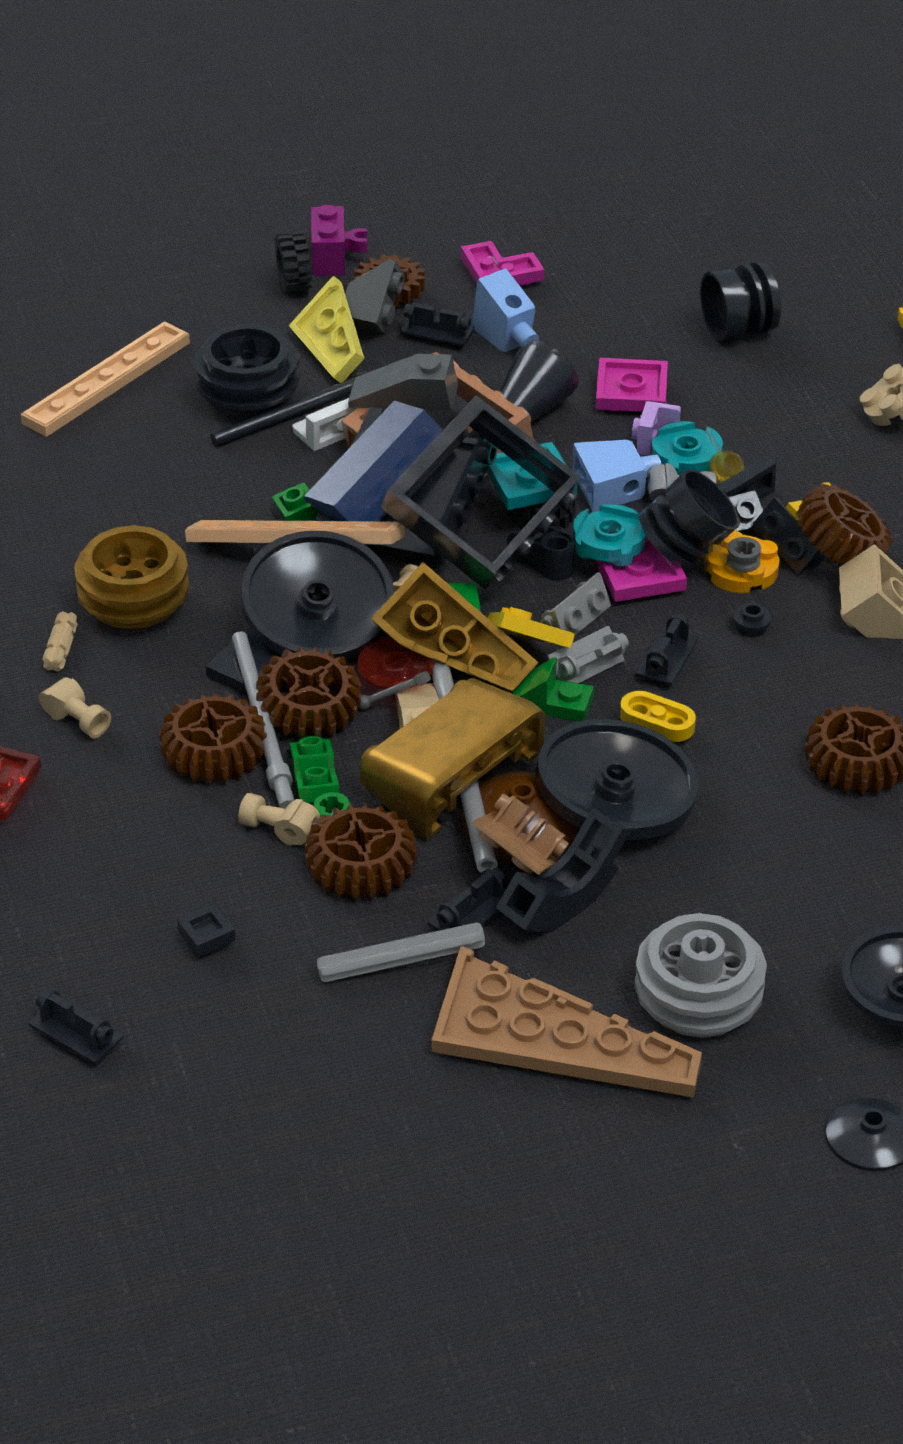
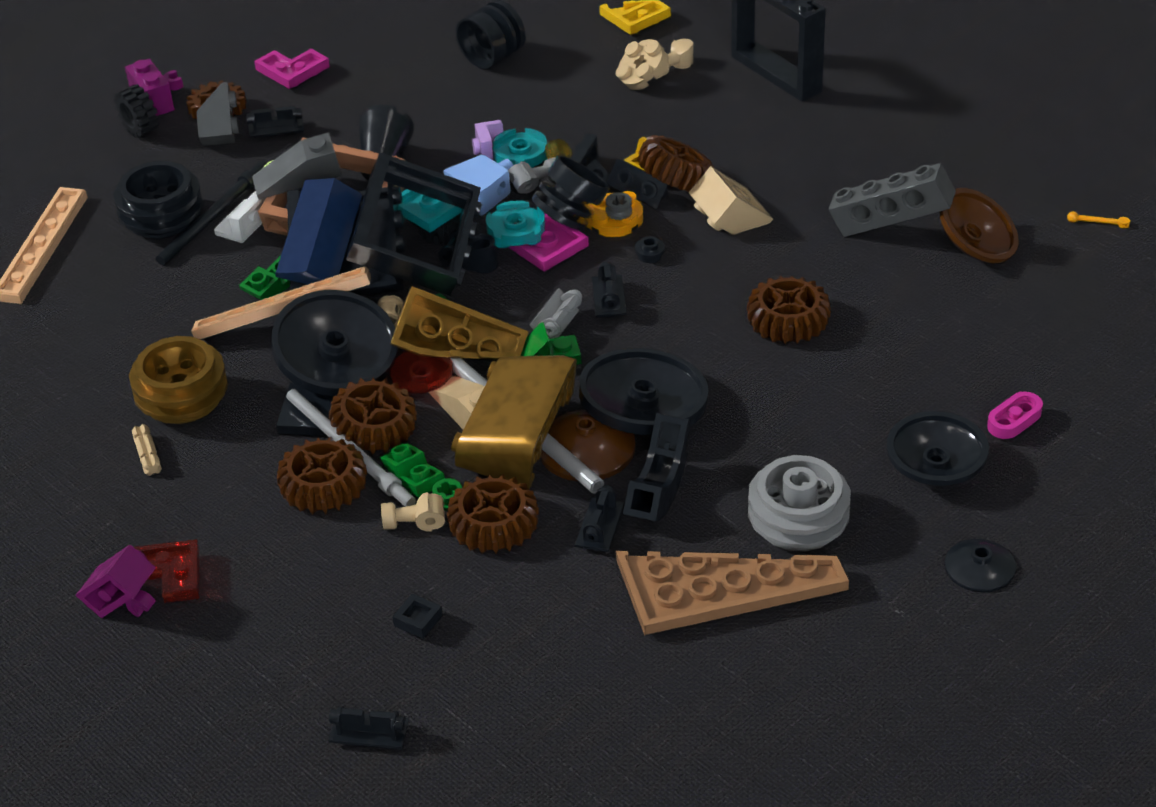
camera: 25 degrees left, 0 degrees up
(67, 699) = (186, 488): tan leg -> none
(330, 331) = (200, 151): light yellow wing -> none
(400, 952) = (573, 574): light grey axle -> none
(418, 680) = (452, 374): dark grey hinge -> none
(501, 830) = (623, 465): medium nougat hinge -> none
(503, 312) = (324, 96): light blue torso -> none
(519, 624) = (502, 309): yellow wing -> none
(580, 607) = (522, 285): light grey hinge -> none
(630, 383) = (448, 118): dark pink plate -> none
(658, 714) = (634, 336): yellow plate -> none

